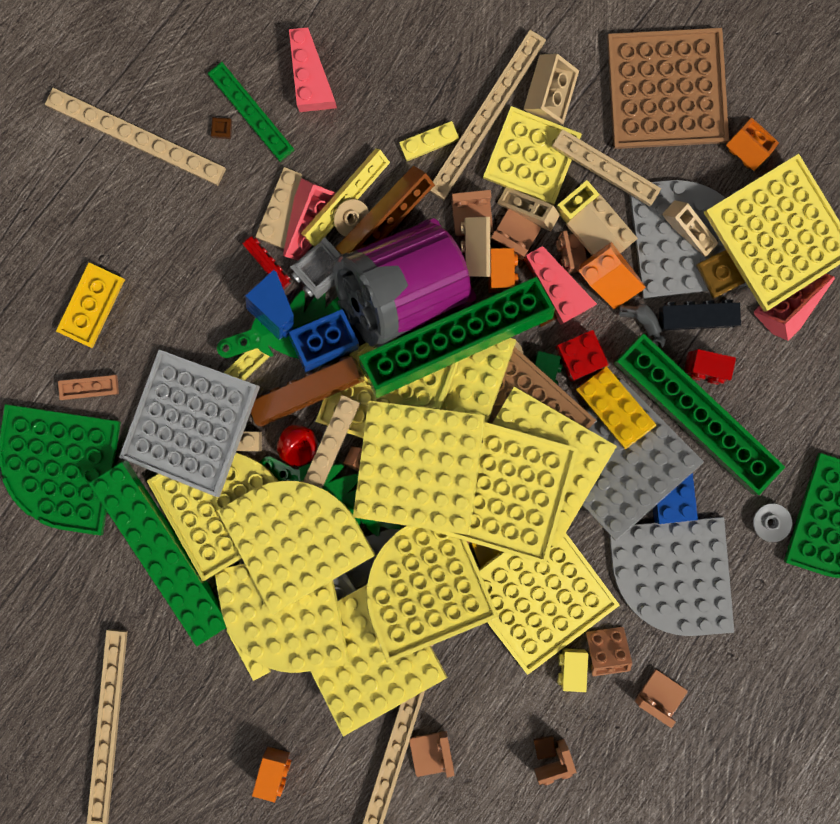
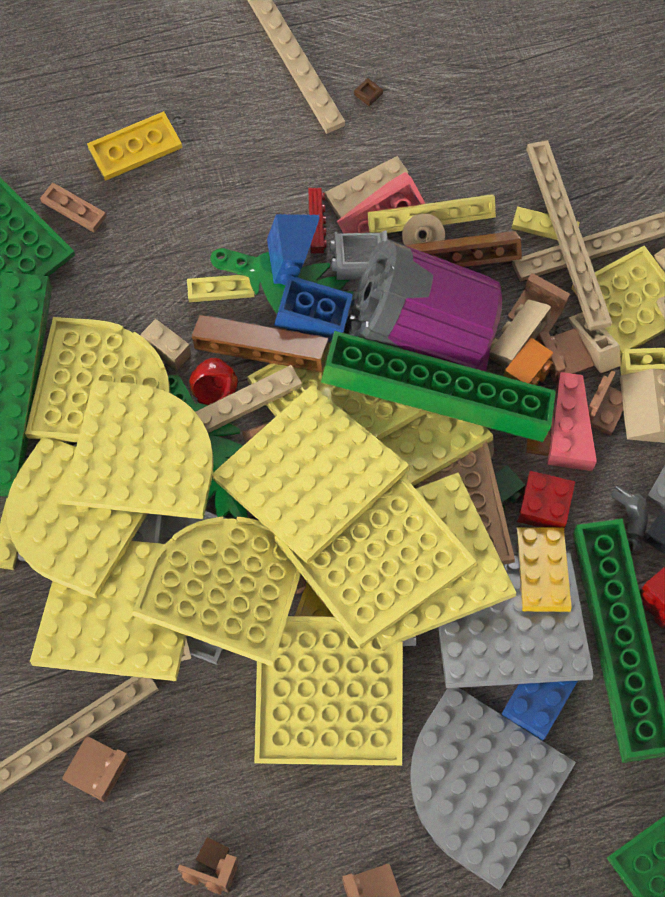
camera: 40 degrees right, 20 degrees down
(189, 422) = (135, 292): light grey plate -> none
(250, 111) = (405, 97): green tile -> none
(309, 76) = (478, 102): coral wedge -> none
(453, 140) = (569, 236): none -> tan plate
(573, 670) = (304, 794): light yellow brick -> none
(609, 651) = (353, 807): nougat bracket -> none
(611, 276) = (629, 448): orange slope -> none
(781, 522) = (631, 796): light grey dish -> none

